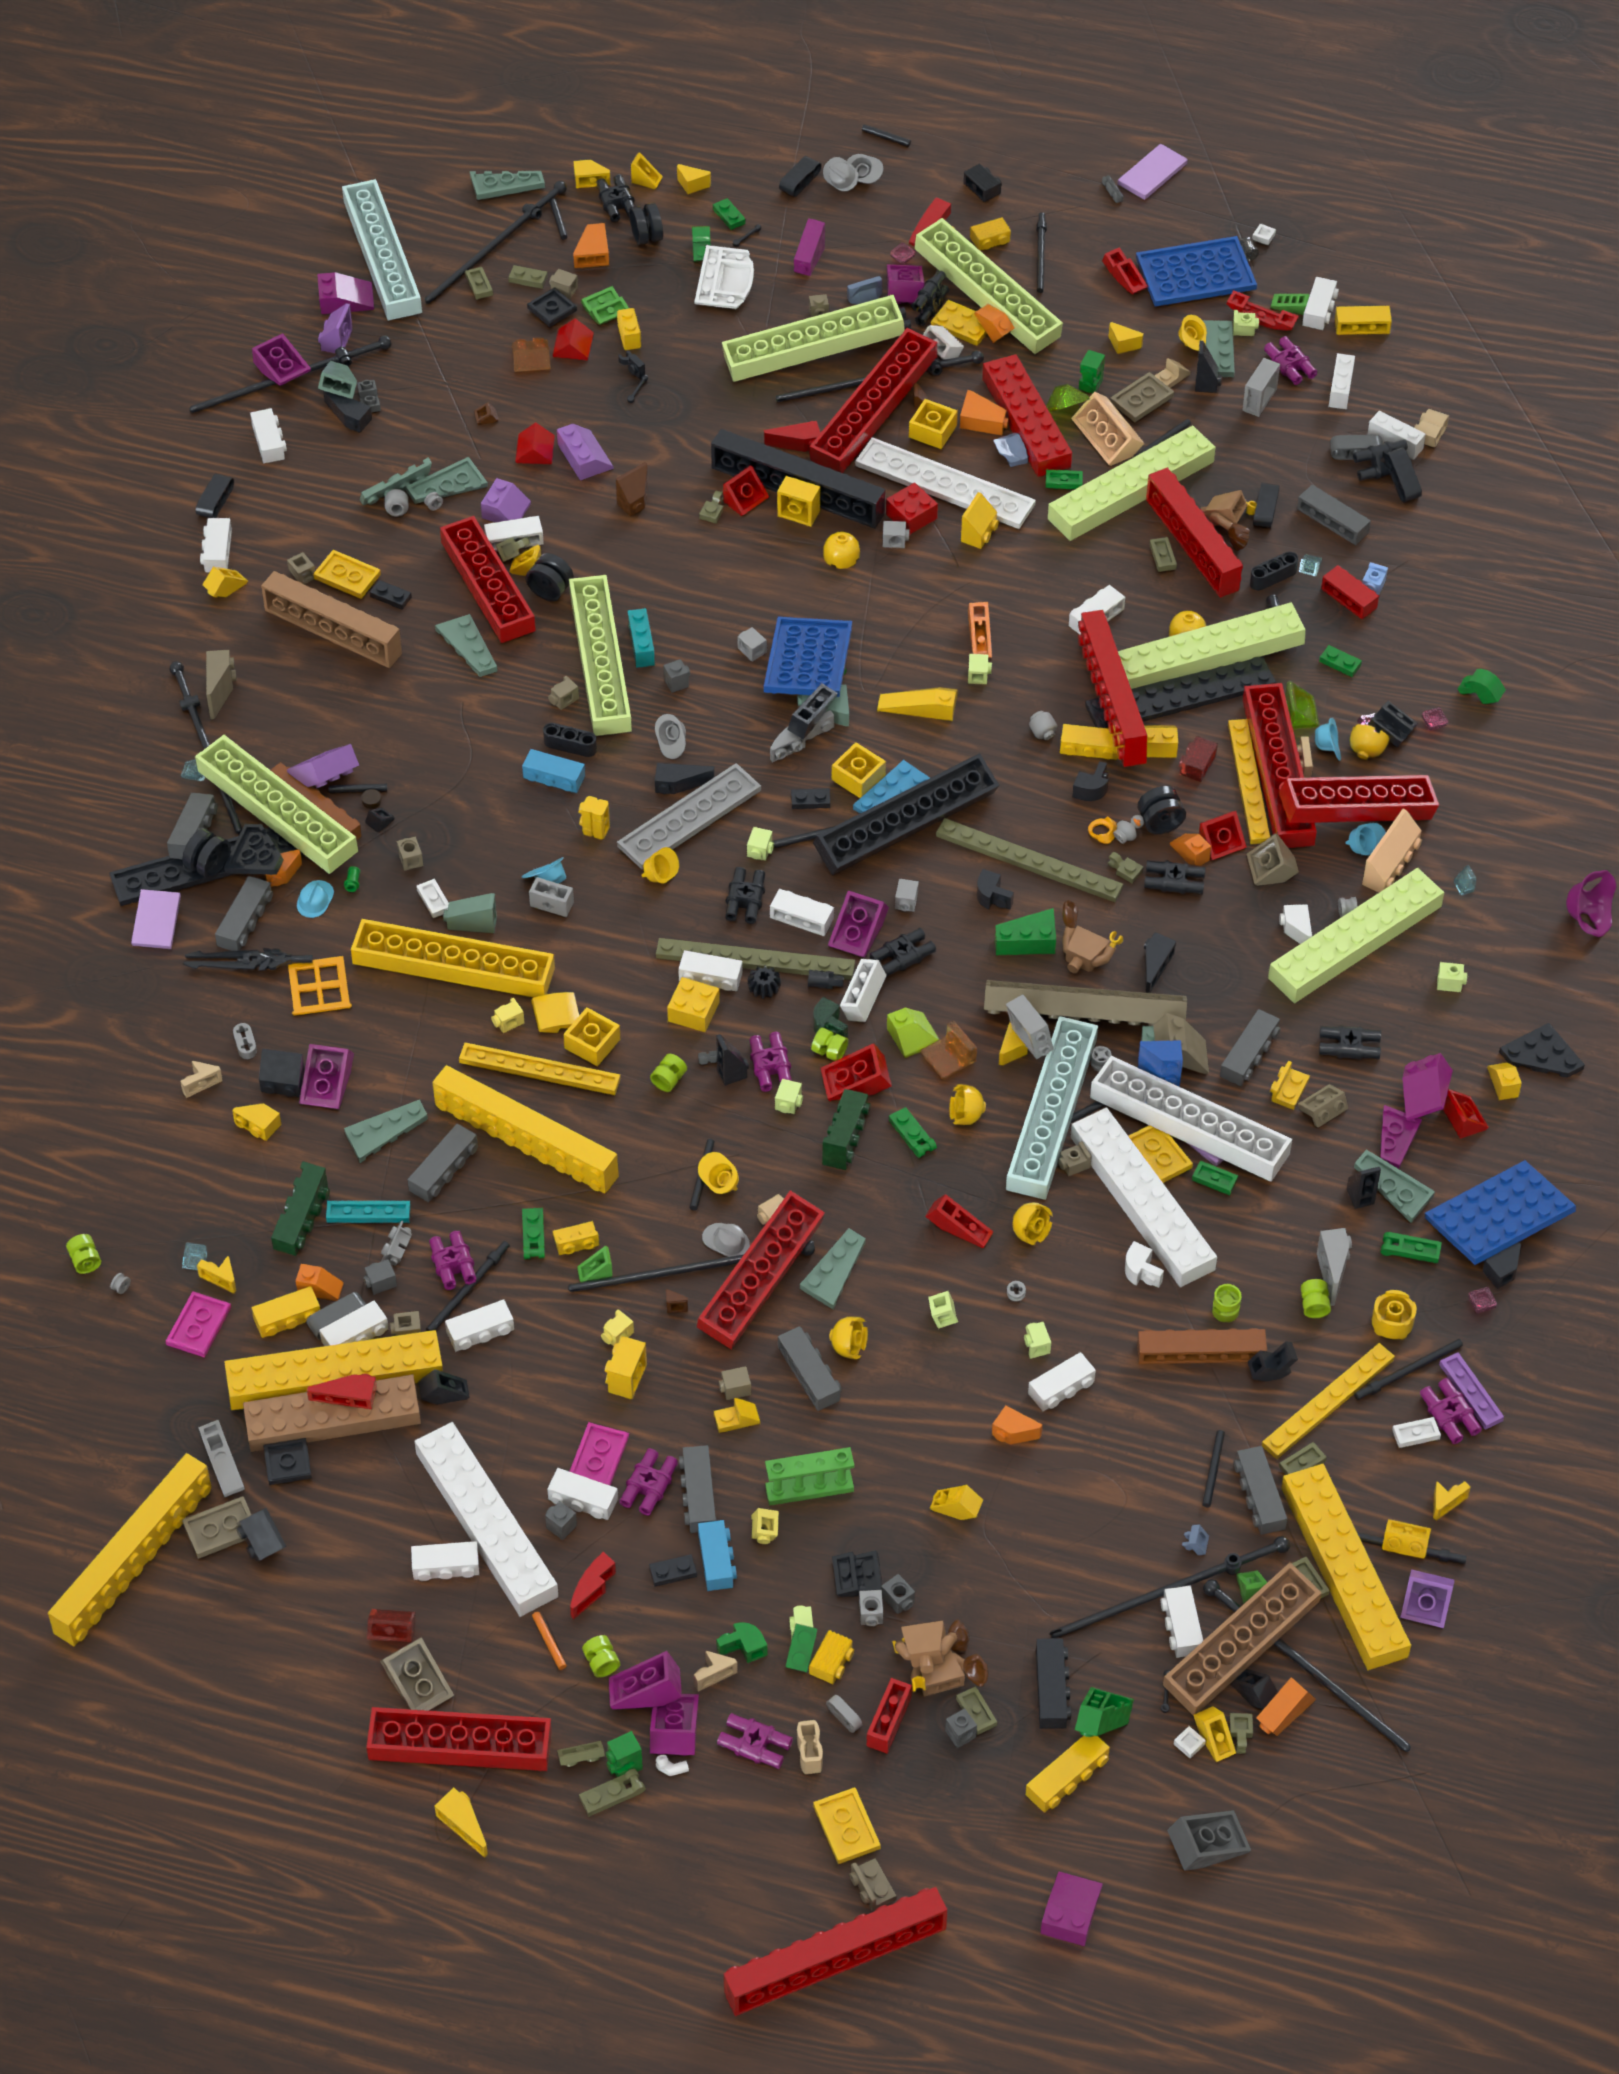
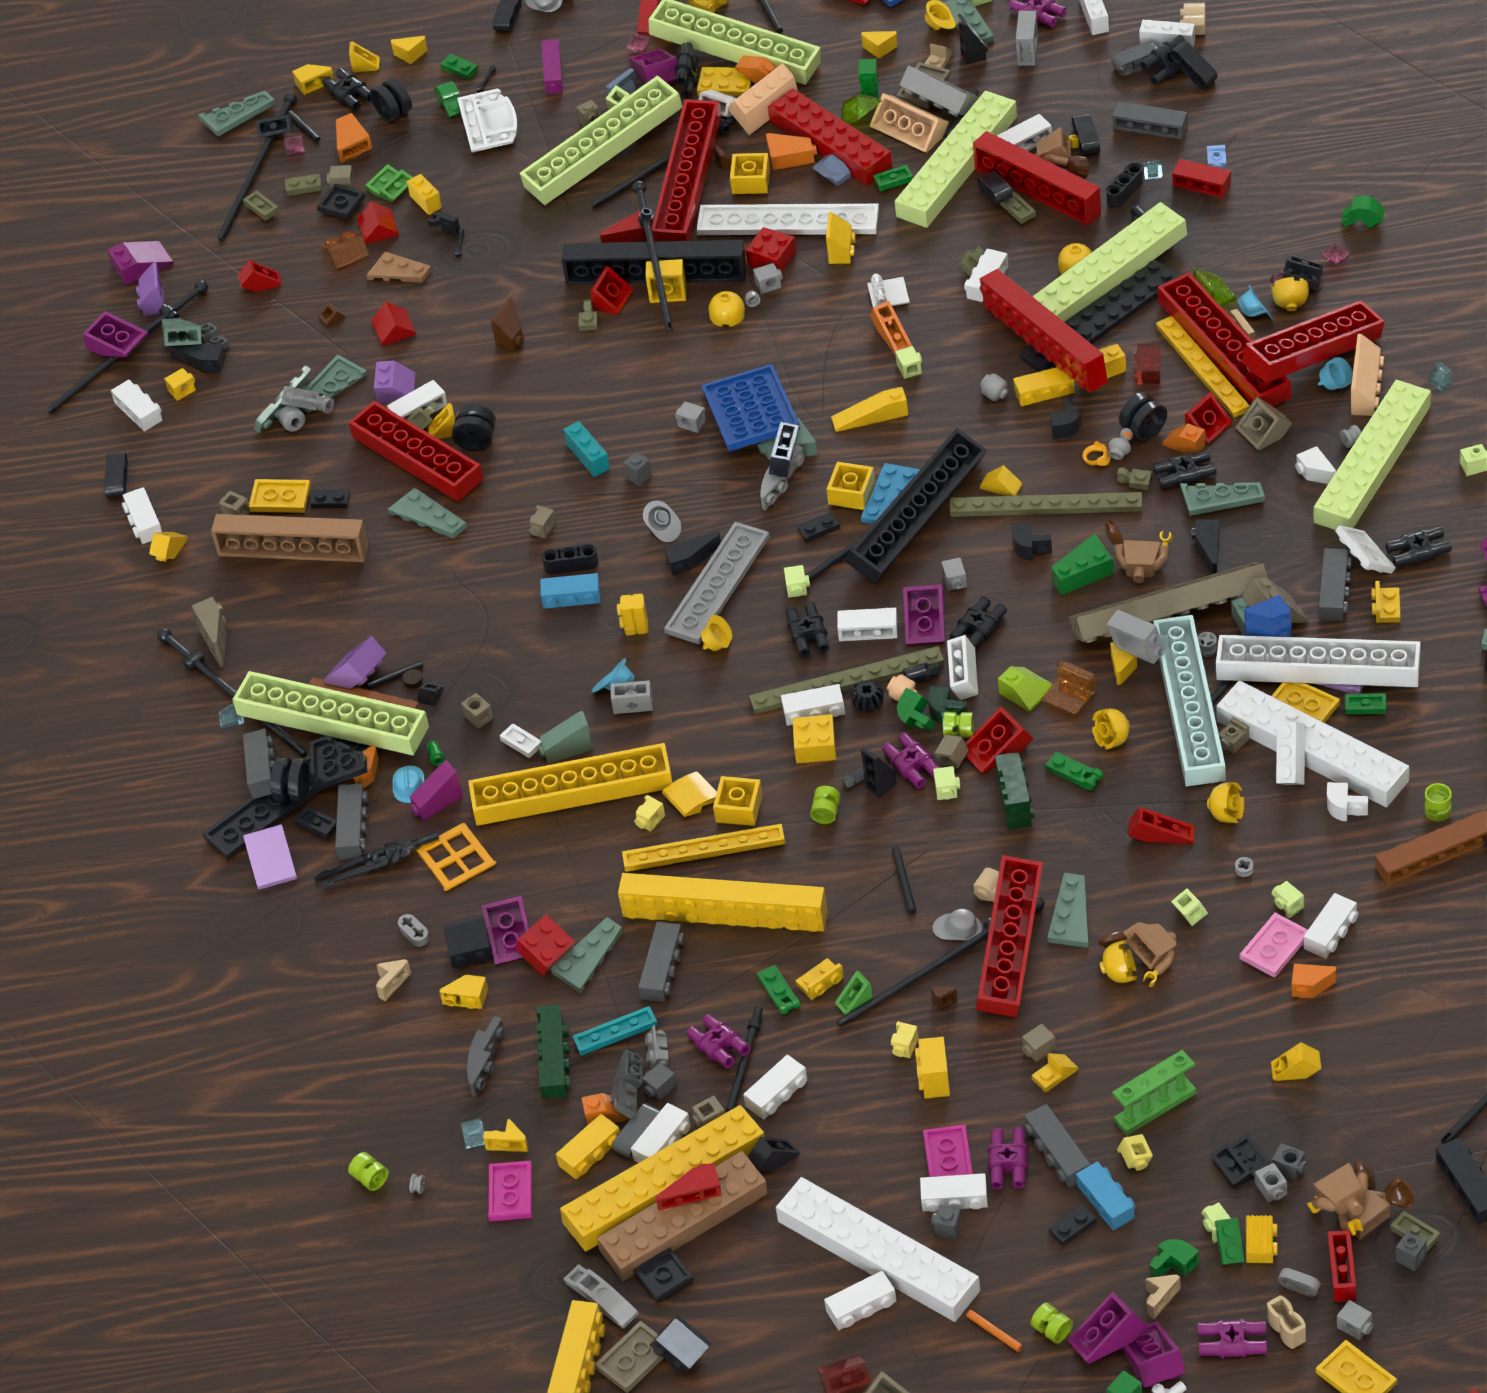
camera: 15 degrees left, 5 degrees down
(213, 902) = (316, 822): none -> black plate
(234, 1190) = (480, 1054): none -> dark grey slope
(316, 430) = (180, 384): none -> yellow brick
(331, 918) = (436, 792): none -> magenta slope
(347, 1103) = (544, 945): none -> red brick
(349, 1267) = (626, 1082): none -> dark grey slope
(382, 250) = (155, 208): light aqua brick -> none
(411, 487) = (300, 398): none -> light grey hinge
(439, 353) = (258, 277): none -> red slope
(529, 209) = (274, 125): none -> black slope
(539, 235) = (294, 145): none -> clear pink plate
(568, 391) = (397, 267): none -> medium nougat wing
(582, 451) = (439, 313): medium lavender slope -> none
(592, 1584) = (1007, 1264): red slope -> none
(600, 655) = (558, 476): yellowish green brick -> none
(718, 1173) = (920, 871): yellow piece -> none
(794, 1011) = (910, 710): none -> green brick
(798, 988) = (898, 685): none -> light nougat head
(807, 434) = (645, 220): none -> black bar
(809, 1368) = (1097, 1004): dark grey brick -> none
(810, 1067) = (951, 751): none -> dark tan brick
(850, 299) = (615, 96): none -> yellowish green brick
(870, 549) = (752, 298): none -> light grey hinge
(873, 1772) = (1354, 1320): none -> light grey brick
(885, 1329) = (1149, 943): none -> medium nougat torso
(968, 357) = (751, 107): none -> light nougat slope
(998, 591) = (887, 290): none -> white hinge
(1000, 822) = (1001, 482): none -> yellow slope
(1000, 1378) = (1274, 945): none -> bright pink plate
(1090, 589) = (970, 260): none -> olive plate
(1113, 1199) = (1290, 753): none -> white brick
(1149, 408) = (937, 90): none -> light grey slope
(1150, 526) = (995, 187): none -> black beam
(1185, 916) = (1207, 499): none -> sand green wing
(1207, 484) = (1028, 133): none -> white brick
(1296, 1025) = (1365, 549): none -> white plate
(1324, 1105) = (1426, 606): dark tan bracket -> none
(1340, 661) = (1225, 238): green plate -> none

